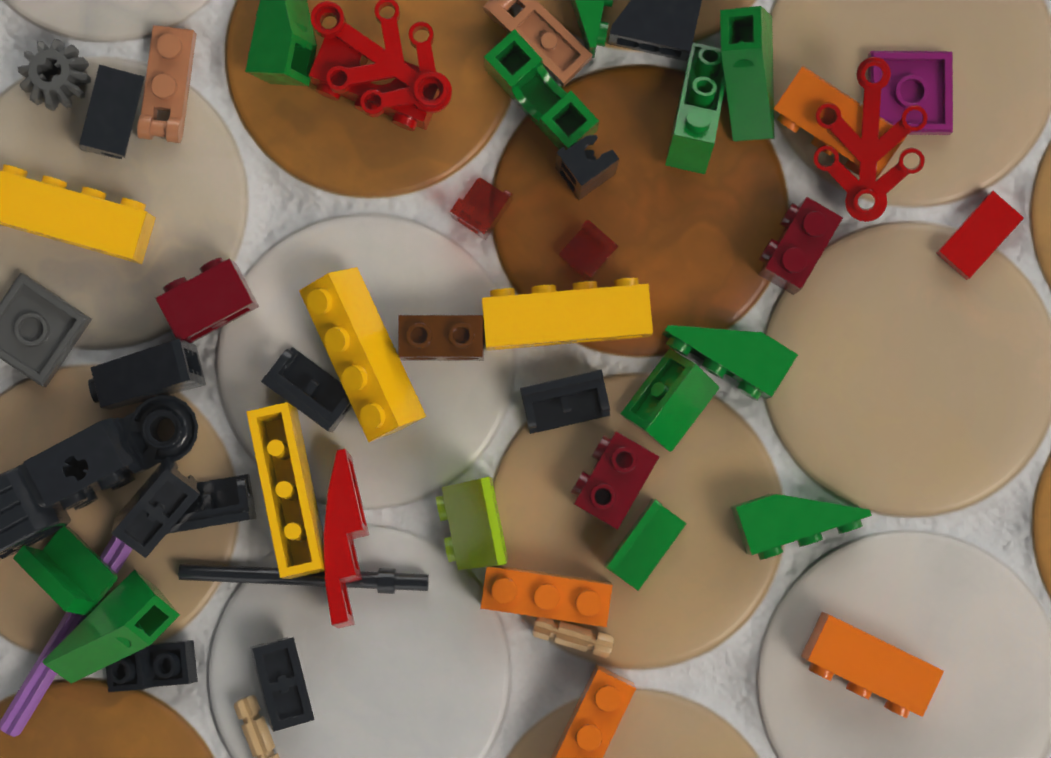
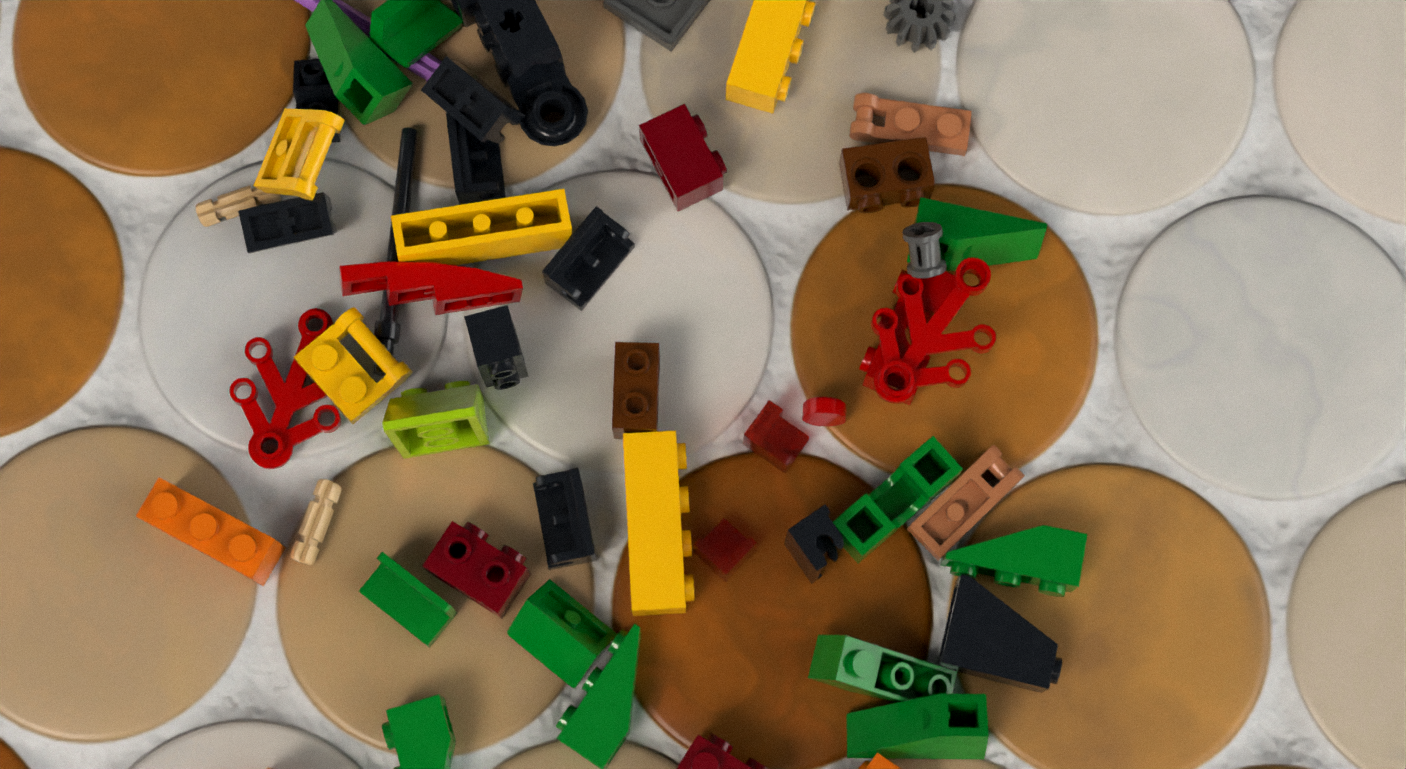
camera: 90 degrees right, 10 degrees down
(111, 112) = (880, 67): black hinge -> none
(146, 374) = (608, 100): black slope -> none
(210, 685) = (298, 152): none -> yellow plate
(211, 108) = (882, 163): none -> reddish brown brick
(304, 63) = (924, 249): none -> dark grey bush
(362, 353) = (622, 308): yellow brick -> none
(406, 469) = (496, 347): none -> black brick
(434, 620) = (342, 376): none -> yellow plate
(452, 669) = (288, 398): none -> red plant
(455, 162) = (824, 411): none -> red tile
(546, 595) = (358, 493): orange brick -> none

